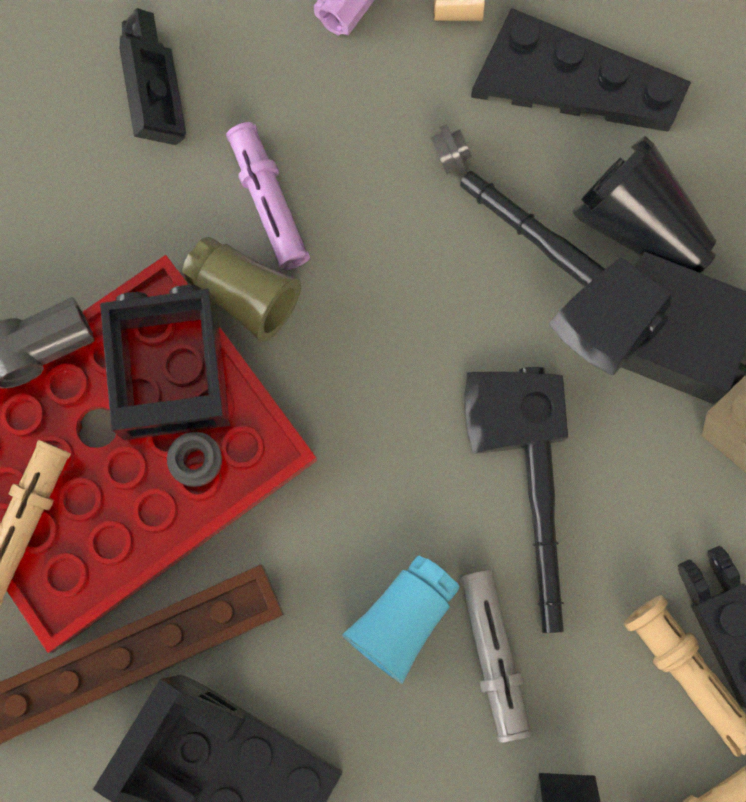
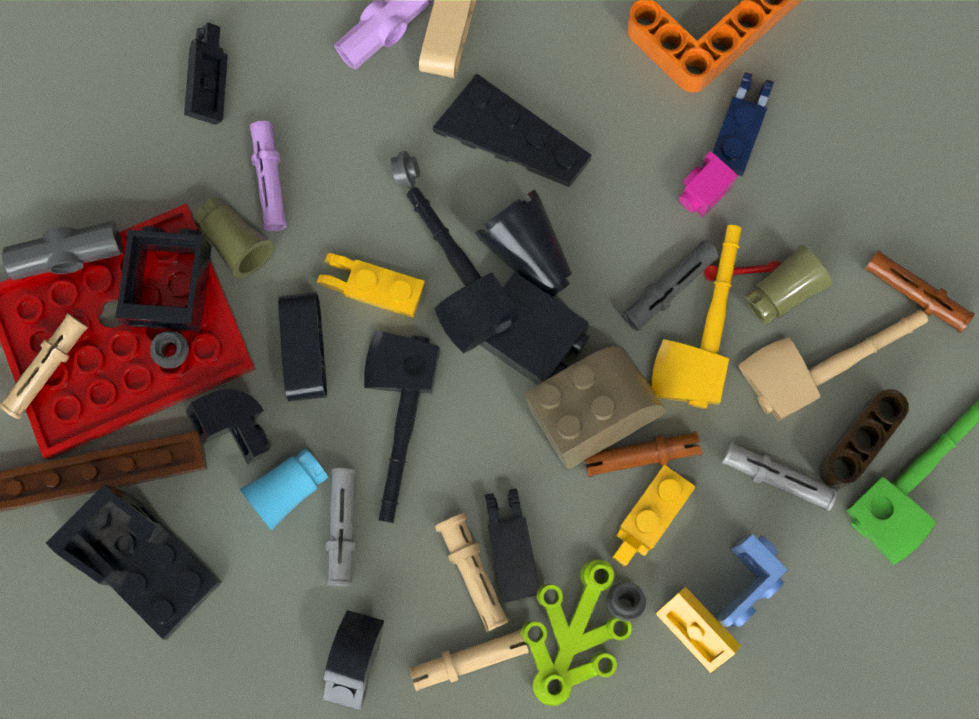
camera: 20 degrees right, 0 degrees up
(306, 529) = (230, 412): none -> black brick
(376, 416) = (302, 346): none -> black beam
(449, 312) = (375, 285): none -> yellow hinge

